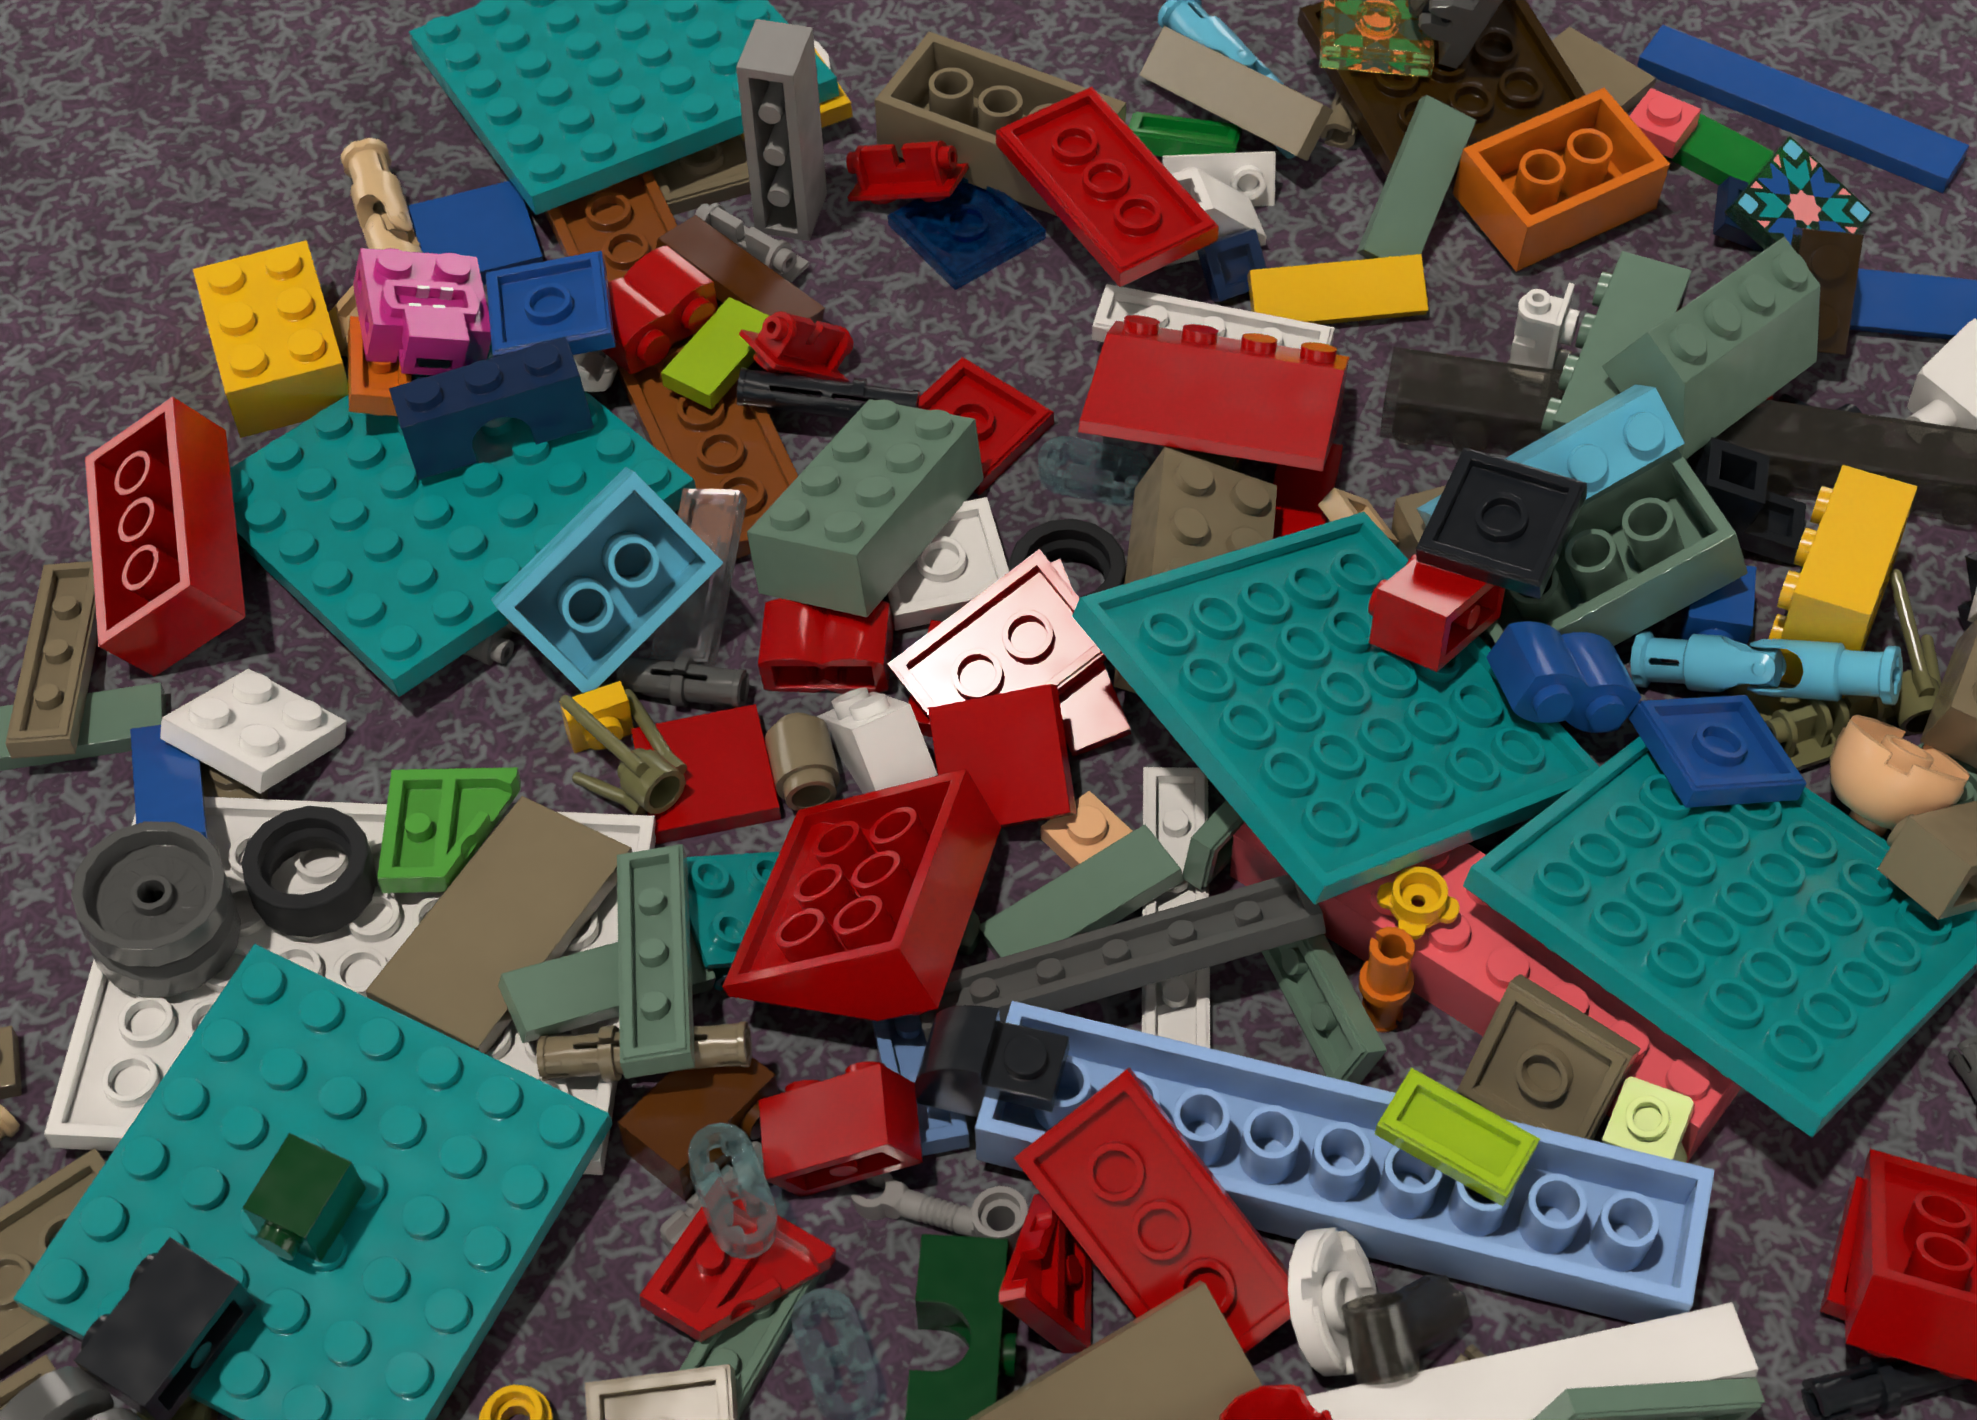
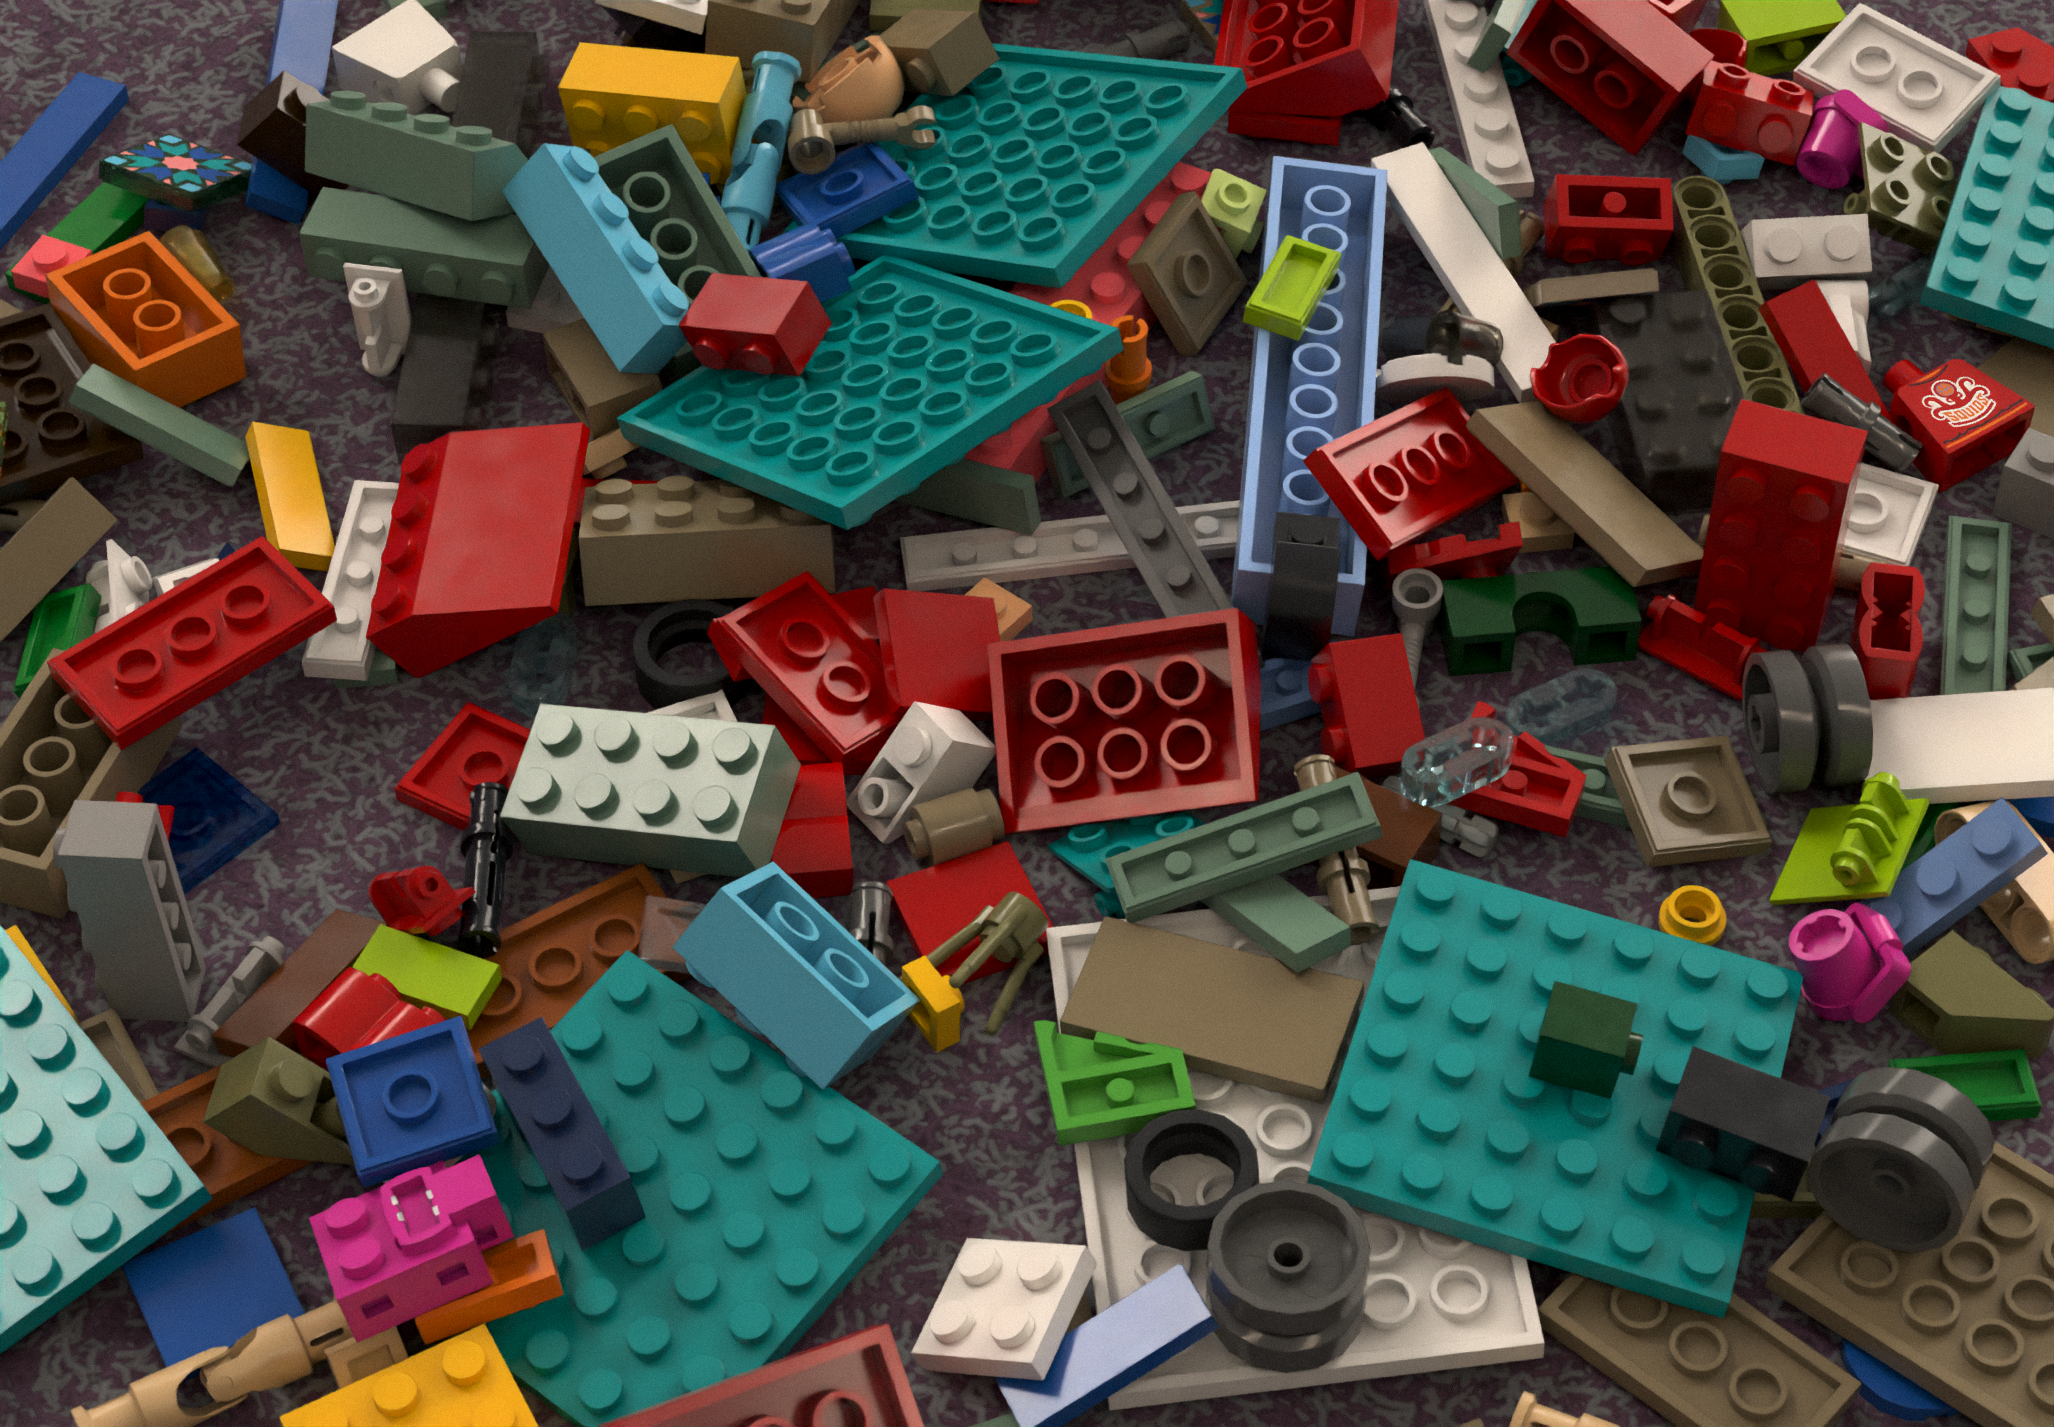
camera: 100 degrees left, 5 degrees down
(603, 226) = (279, 1106): none -> olive slope
(1086, 896) = (1056, 583): sand green tile -> none
(1501, 522) = (687, 258): black tile -> none
(1669, 227) = (199, 259): none -> clear yellow cone
(1791, 716) = (813, 140): none -> dark tan brick

